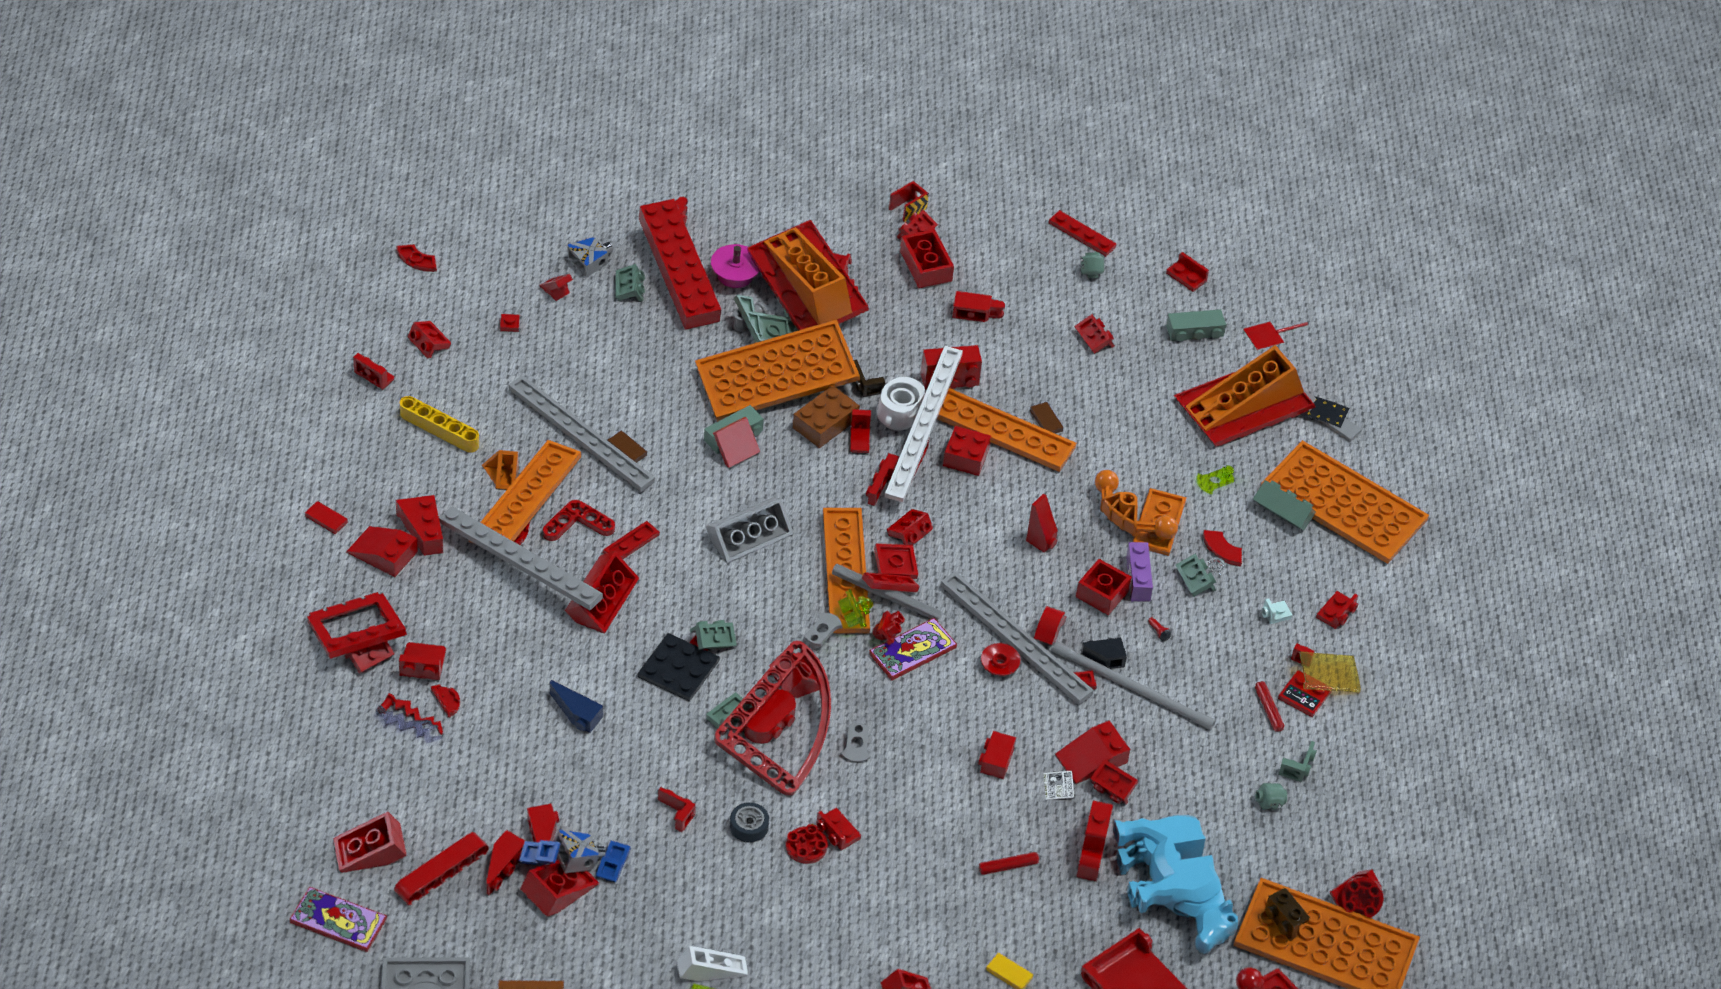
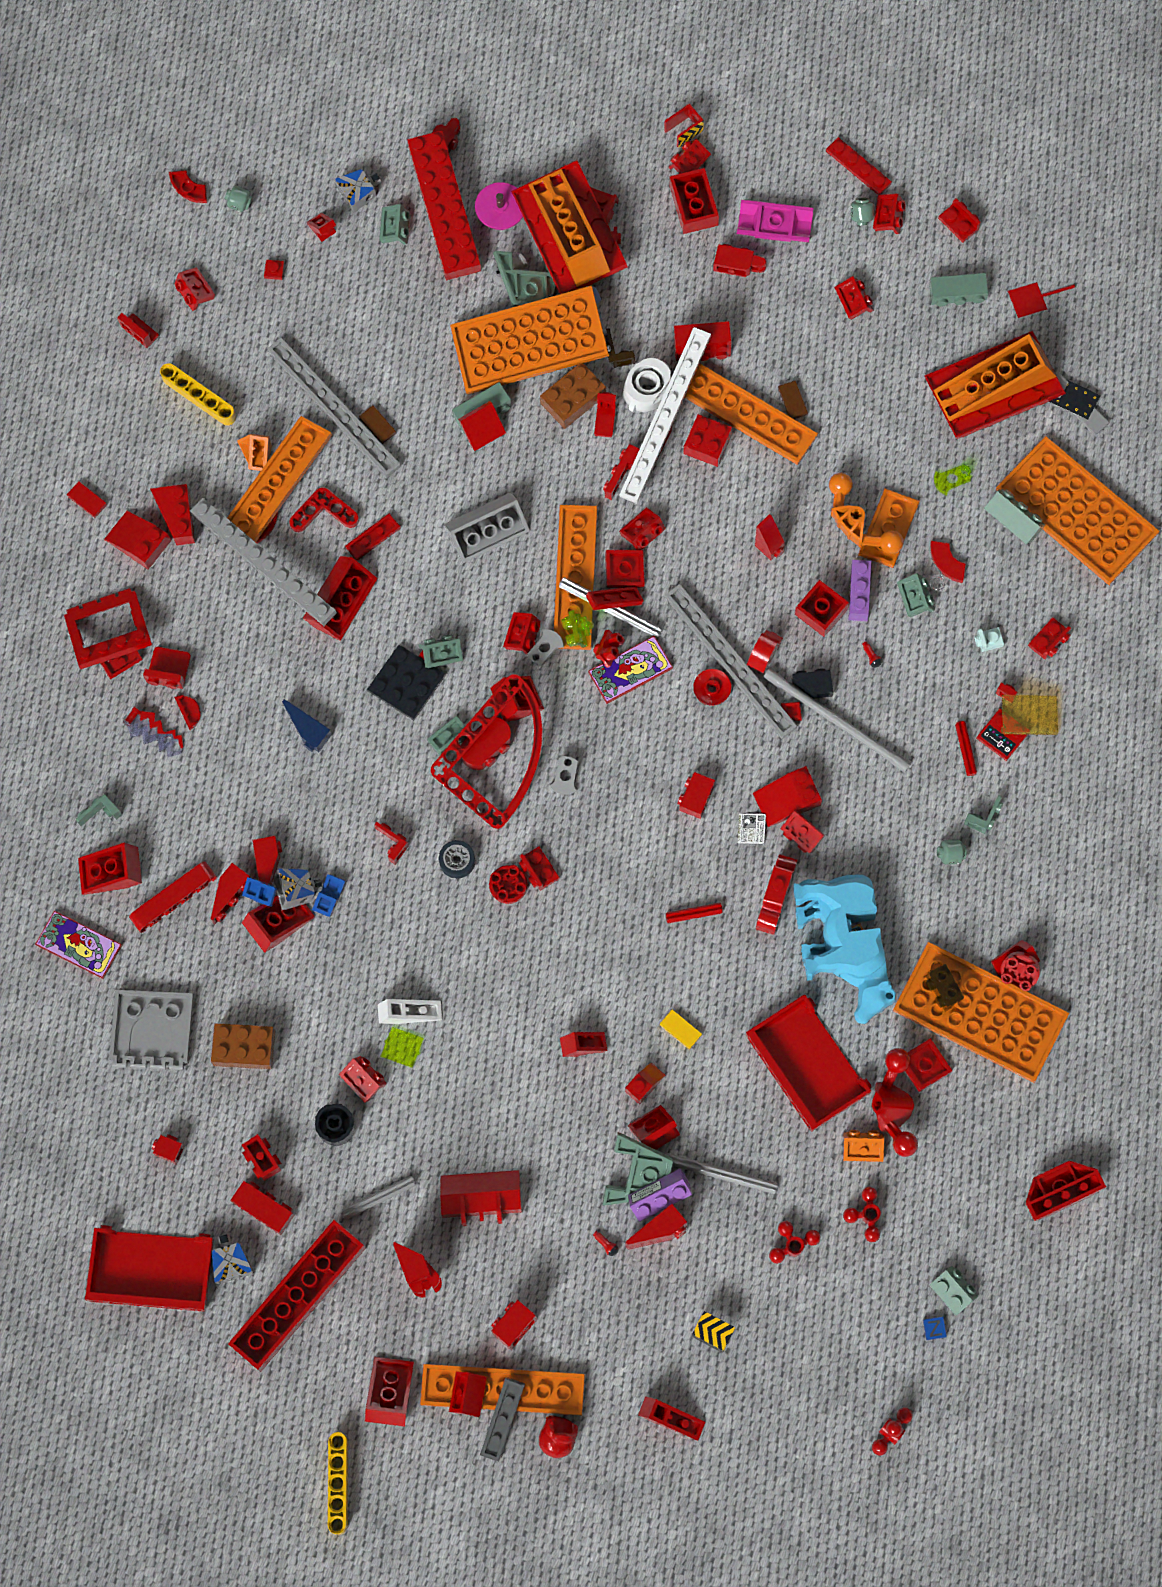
camera: 15 degrees right, 25 degrees up
(360, 783) = (98, 803): none -> sand green bracket
(469, 264) = (238, 198): none -> sand green head
(796, 618) = (522, 632): none -> red bracket
(1008, 274) = (775, 221): none -> dark pink piece
(1118, 267) = (889, 213): none -> red bracket

